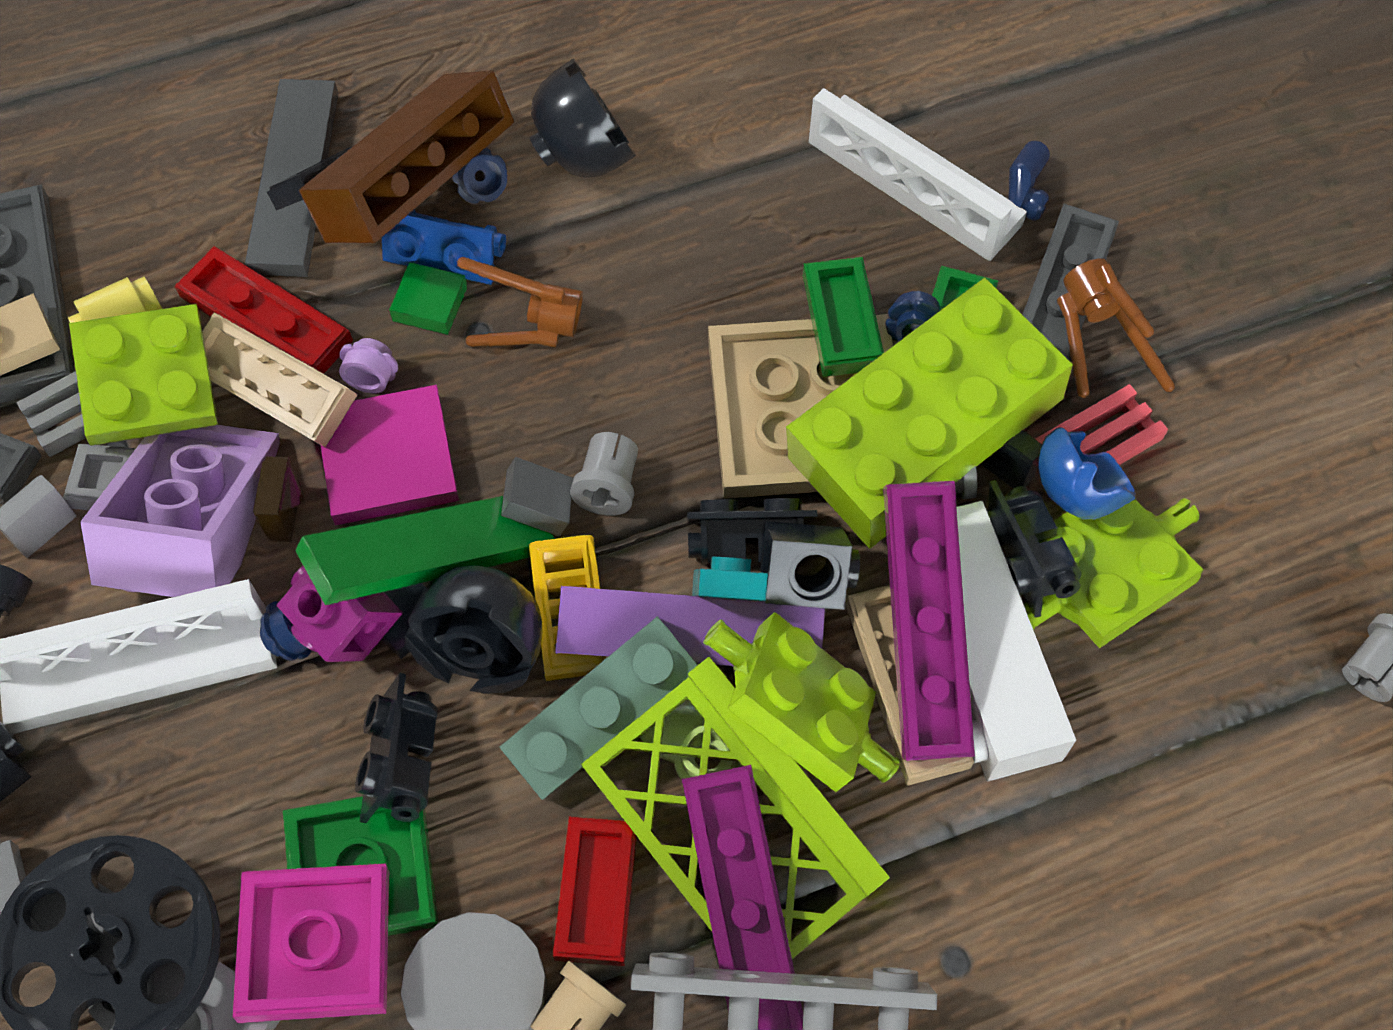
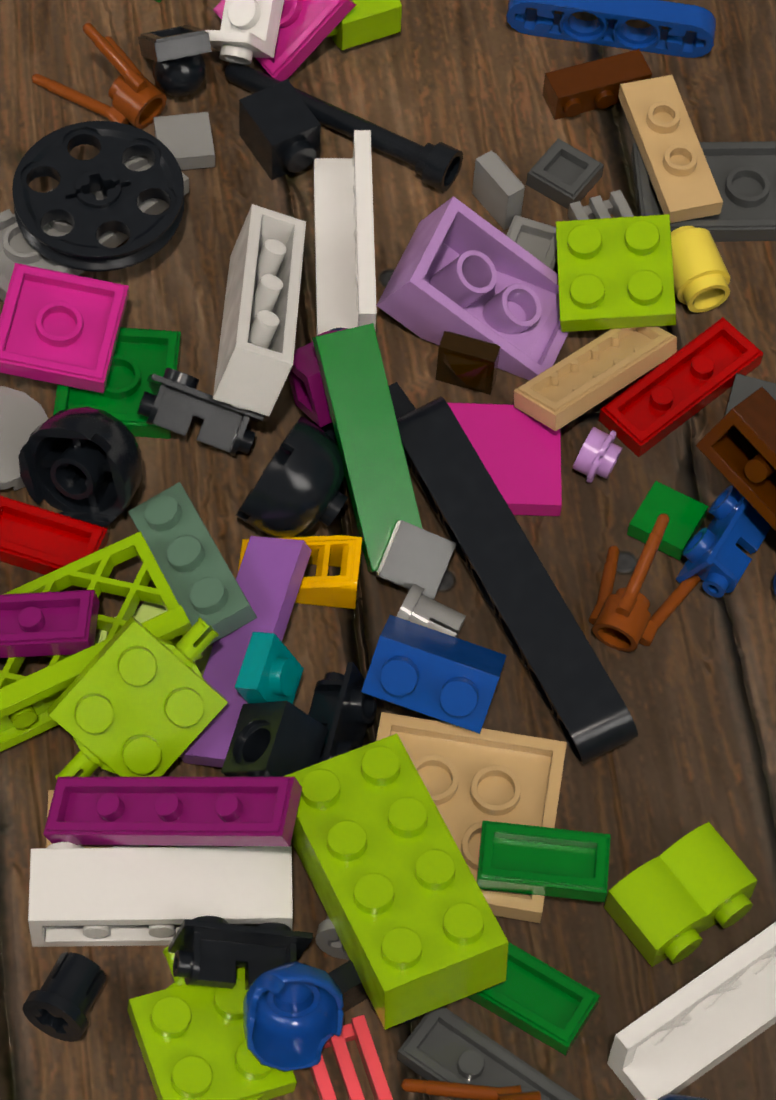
camera: 100 degrees right, 5 degrees down
(264, 699) = (260, 311): none -> white brick
(503, 852) = (82, 465): none -> black cylinder
(539, 402) = (514, 583): none -> black beam
(676, 441) = (433, 673): none -> blue brick
(826, 214) = (681, 895): none -> lime brick
(908, 310) = (522, 924): dark blue plate -> none
(1118, 698) = (65, 997): none -> black bush

